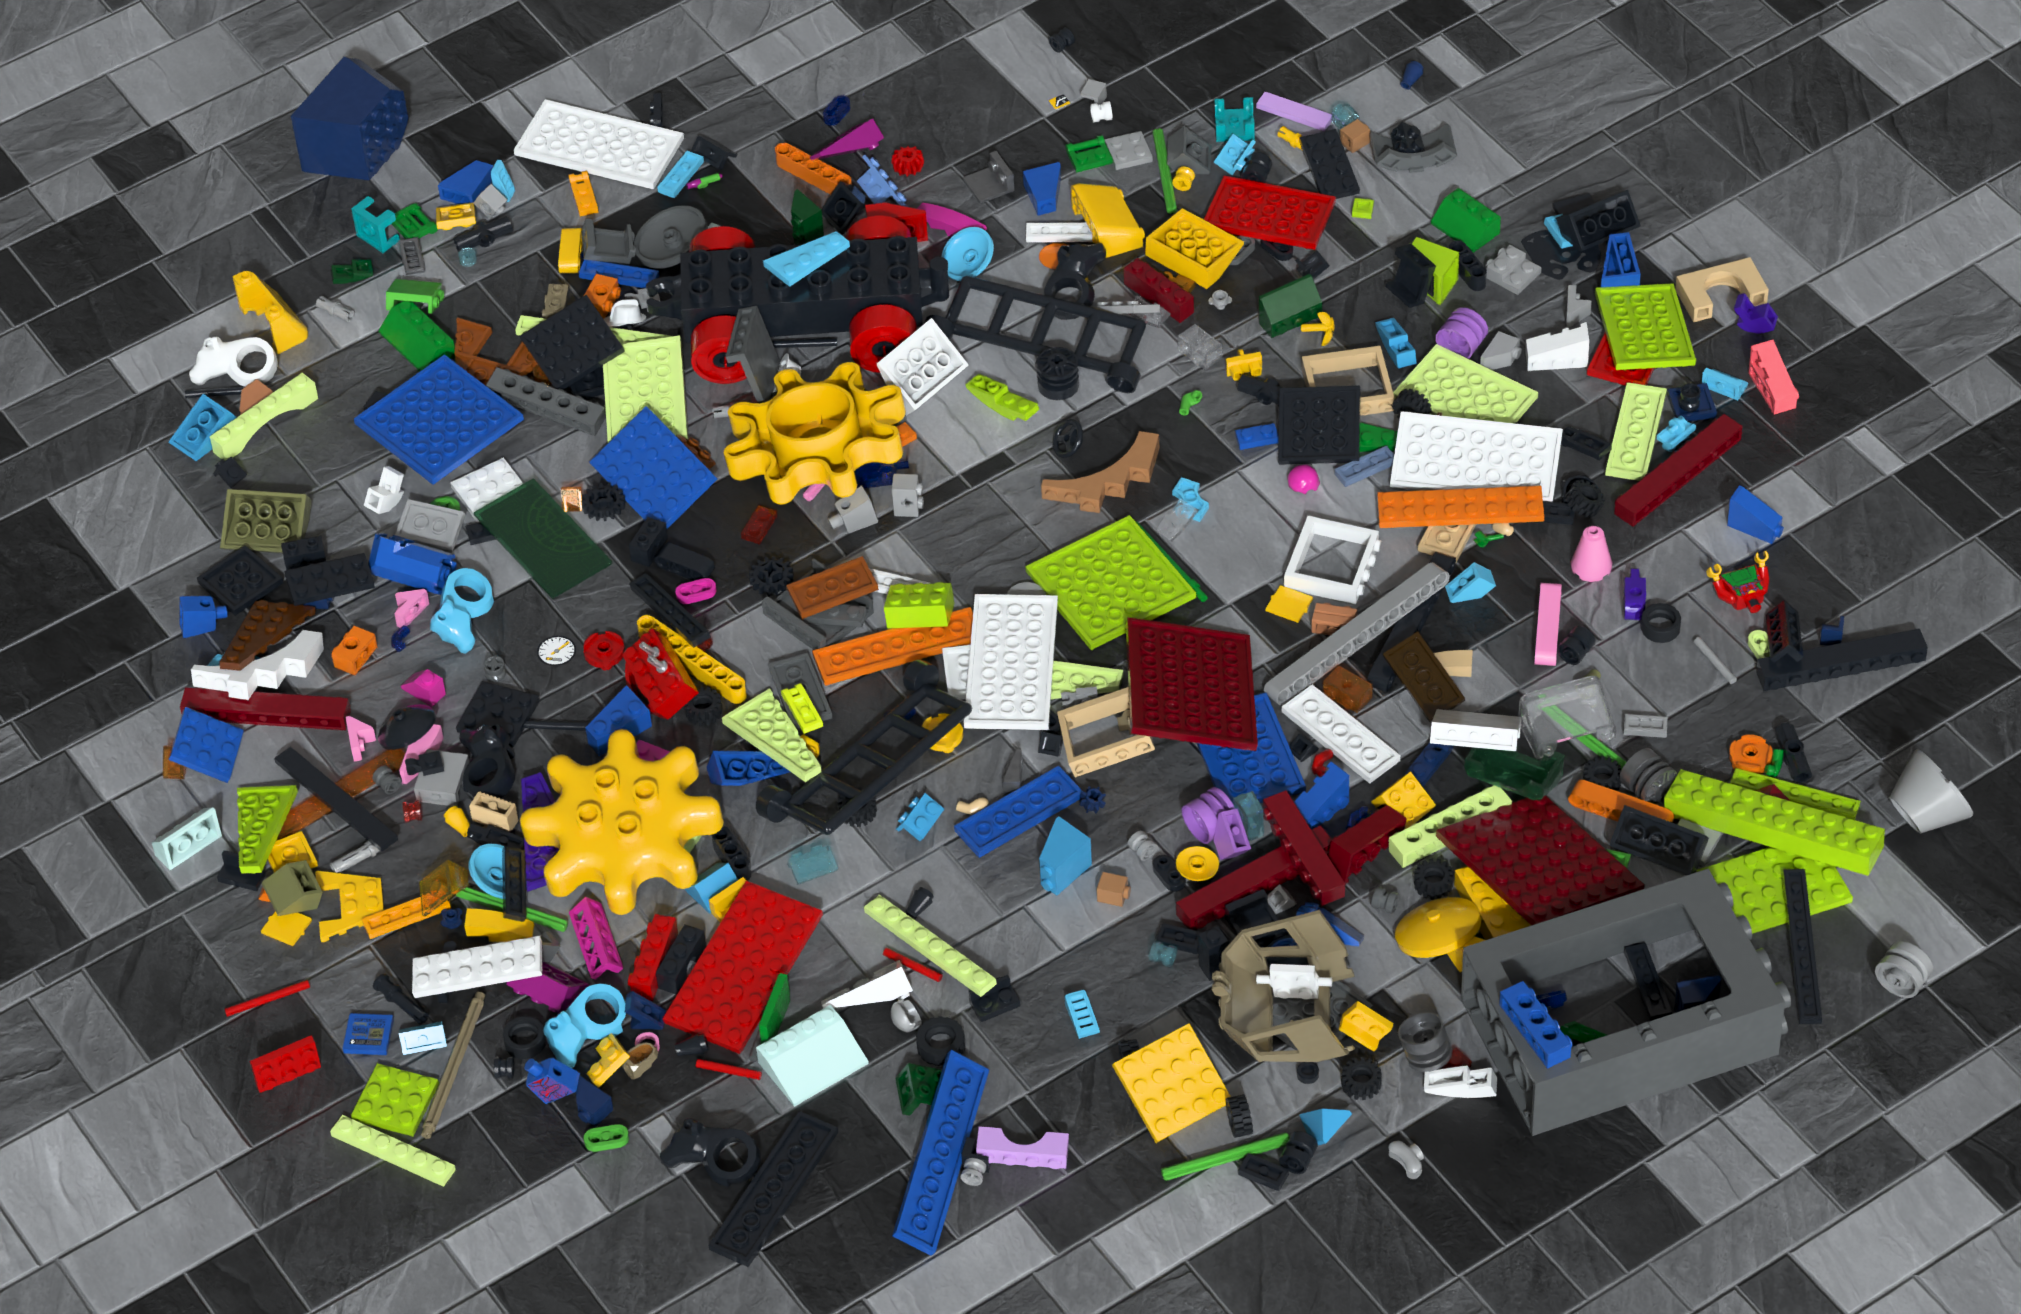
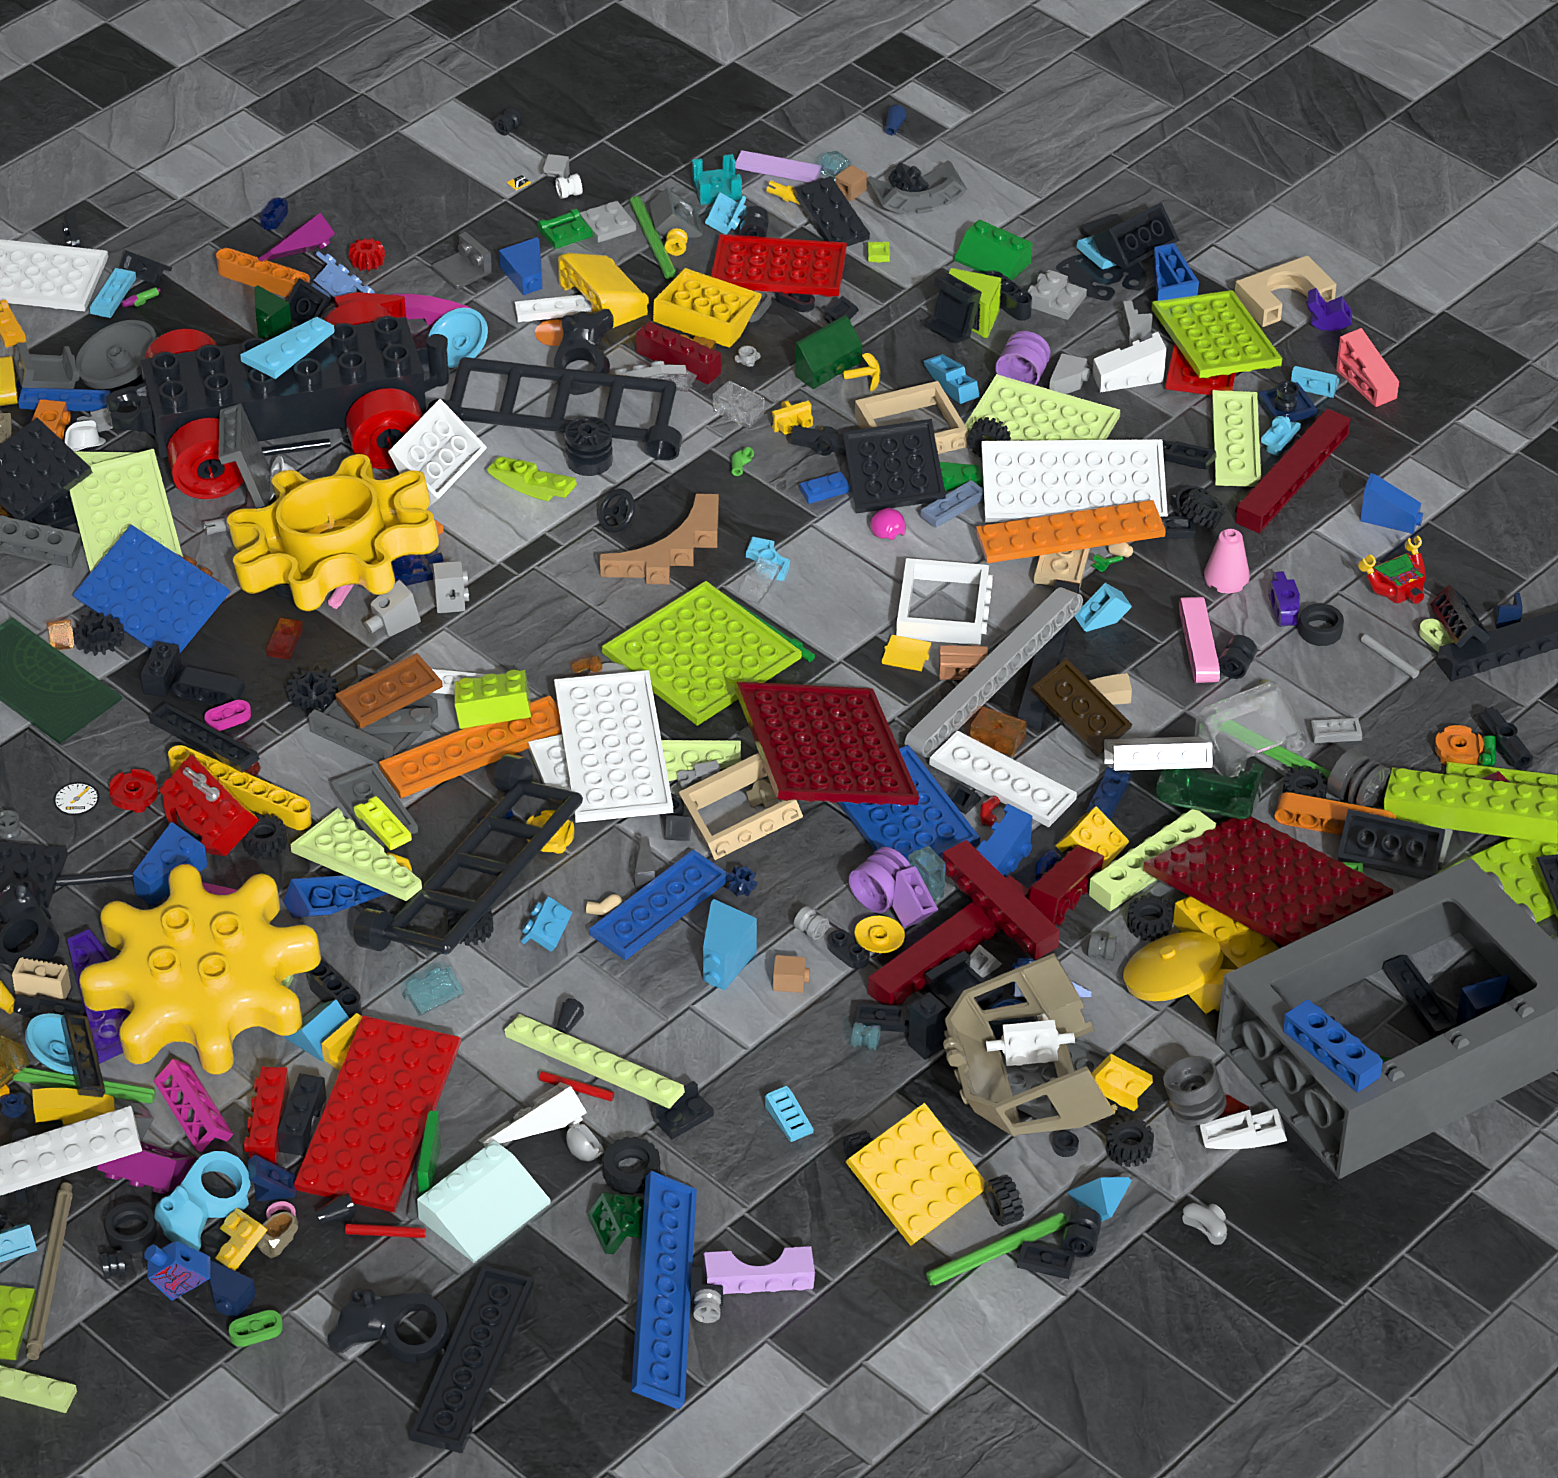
camera: 15 degrees left, 5 degrees down
(1009, 580) = (592, 663): none -> clear orange arm

